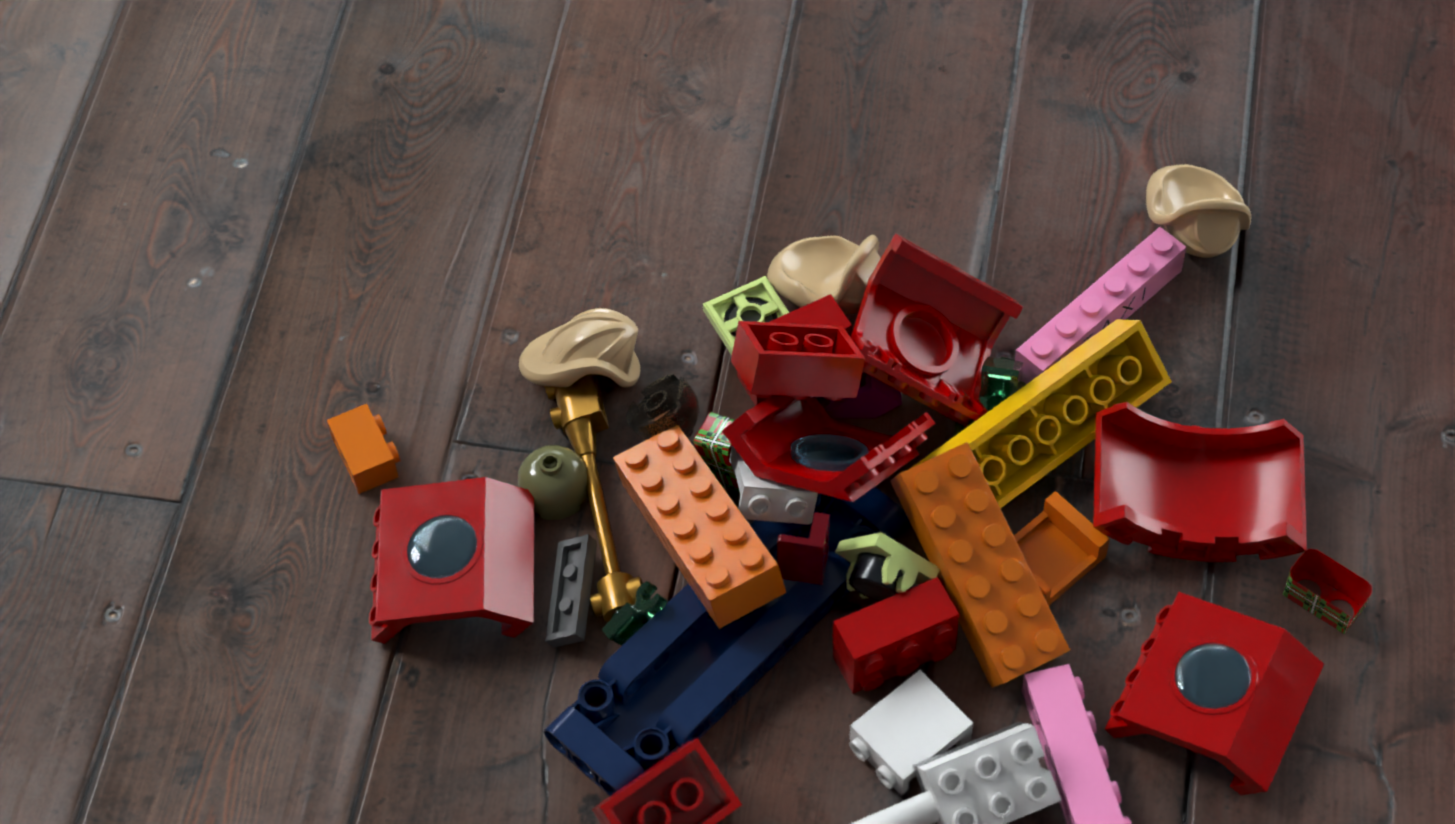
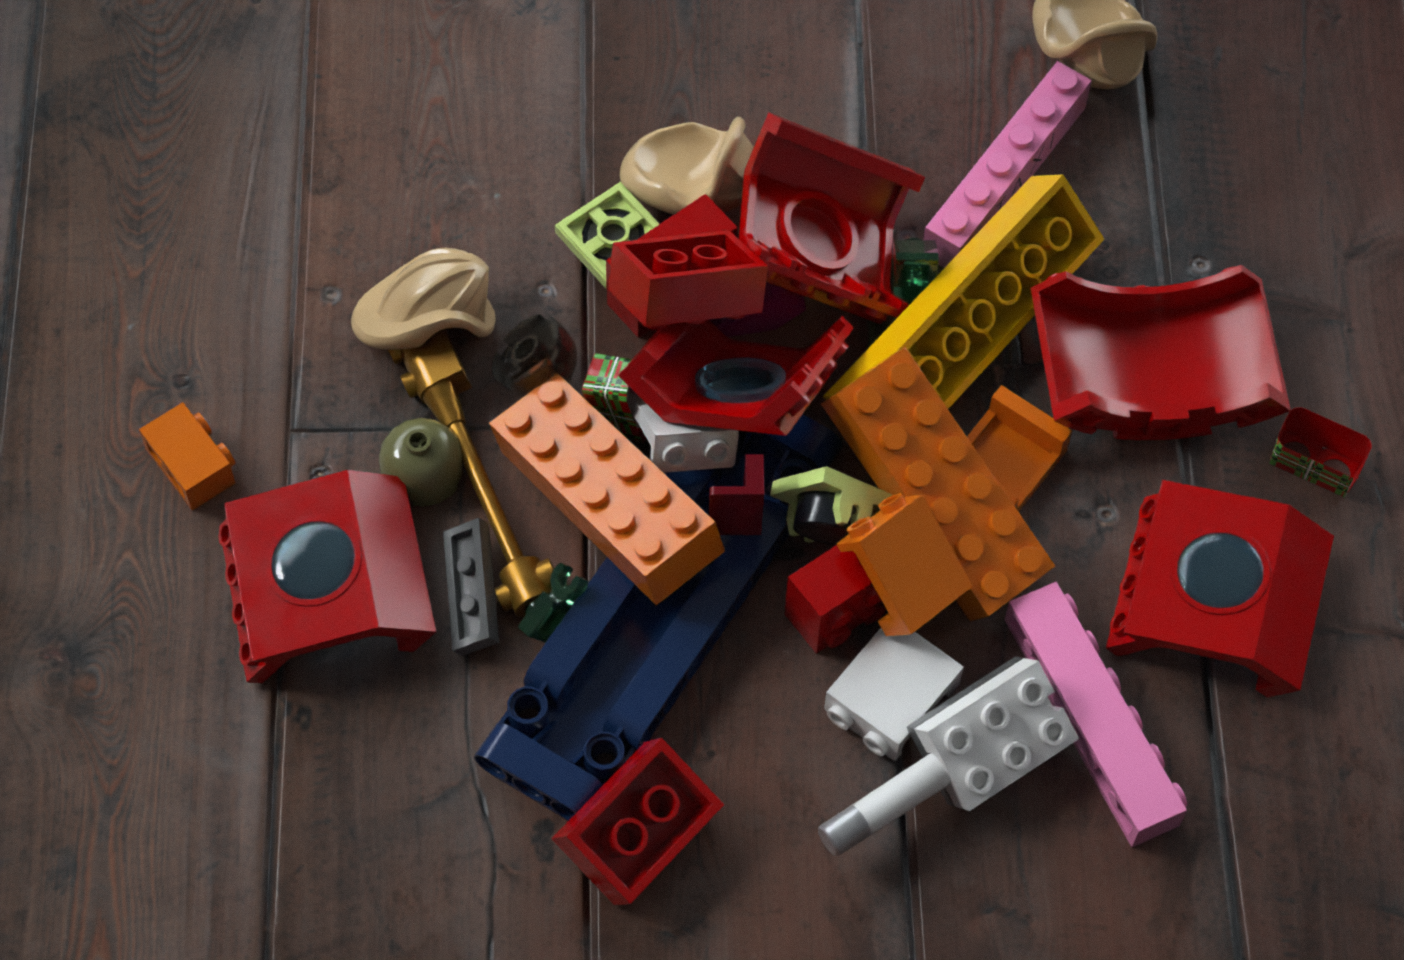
camera: 15 degrees left, 5 degrees up
(937, 625) = (907, 562): none -> orange panel

